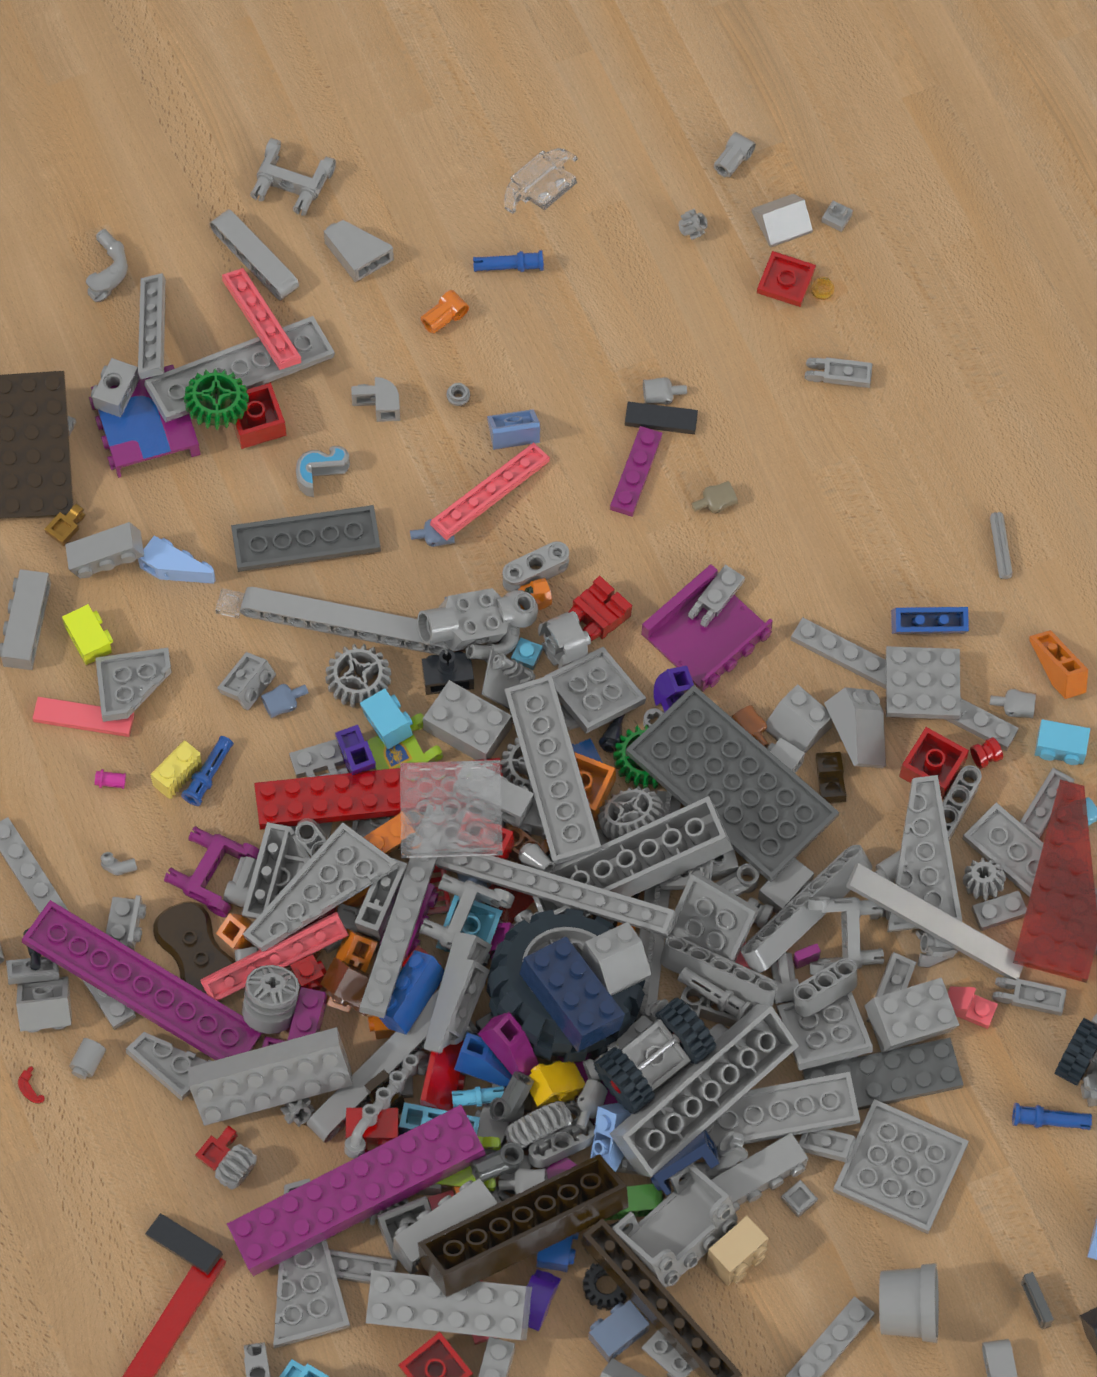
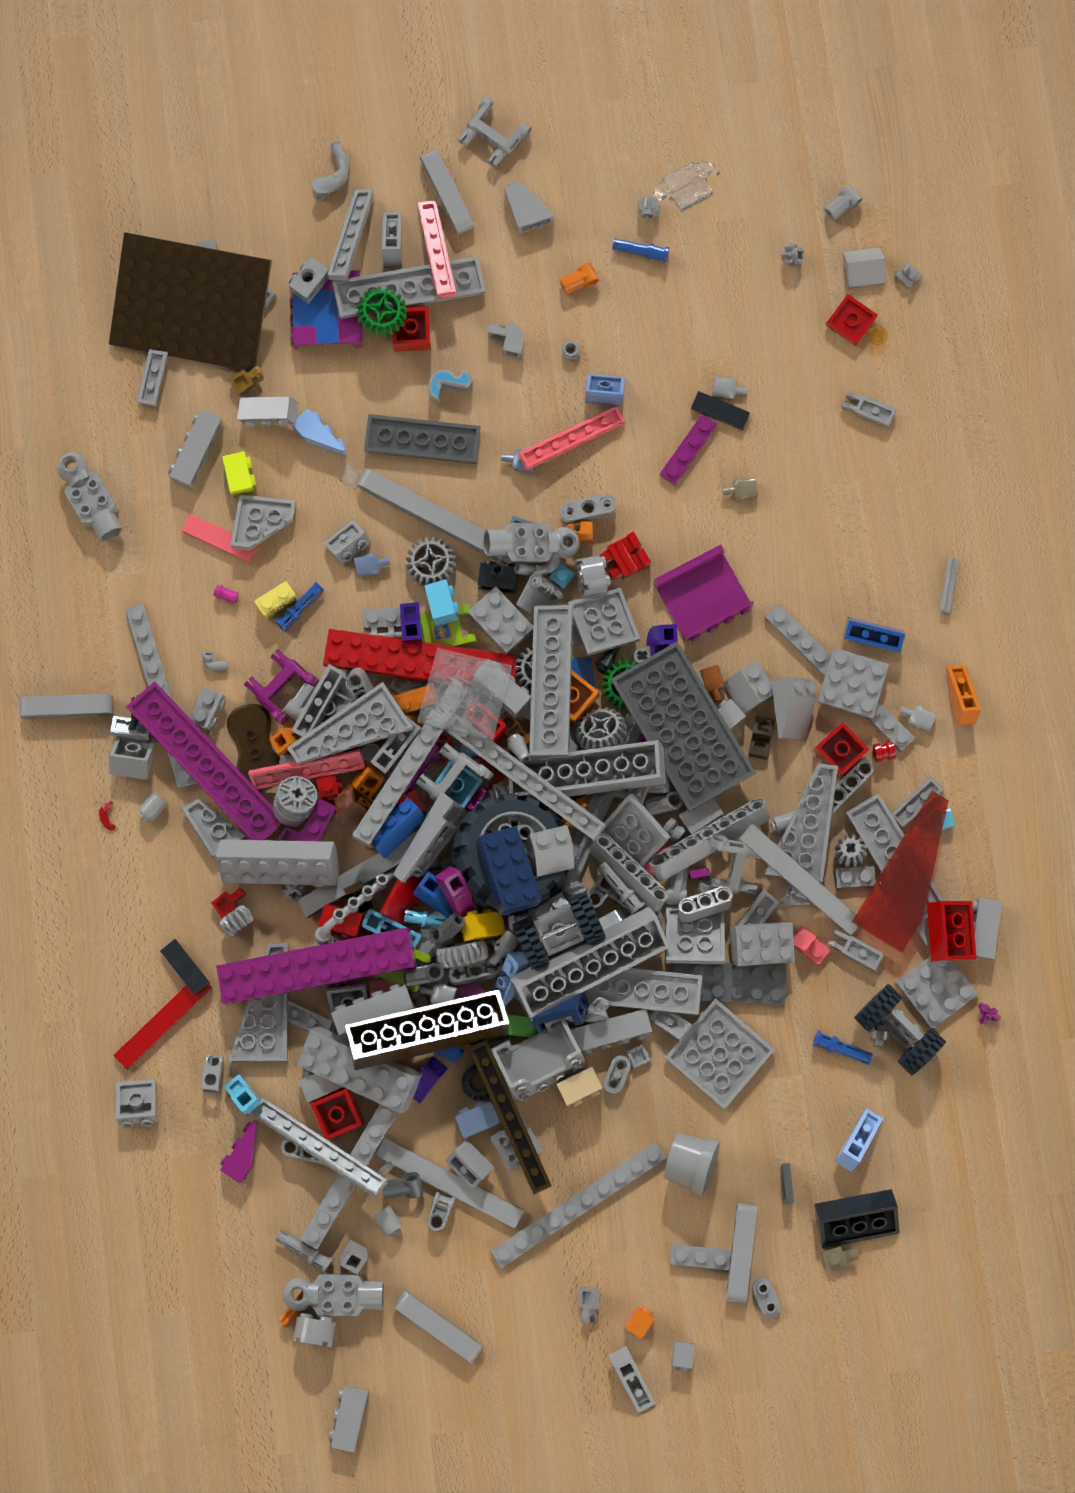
camera: 20 degrees right, 15 degrees up
(202, 323) = (392, 239): none -> light grey slope
(399, 1343) = (316, 1087): none -> light grey slope
(504, 213) = (648, 207): none -> light grey gear
(717, 594) = (719, 568): light grey hinge -> none
(779, 1228) = (617, 1074): none -> light grey plate
(1062, 742) = (944, 758): medium azure brick -> none

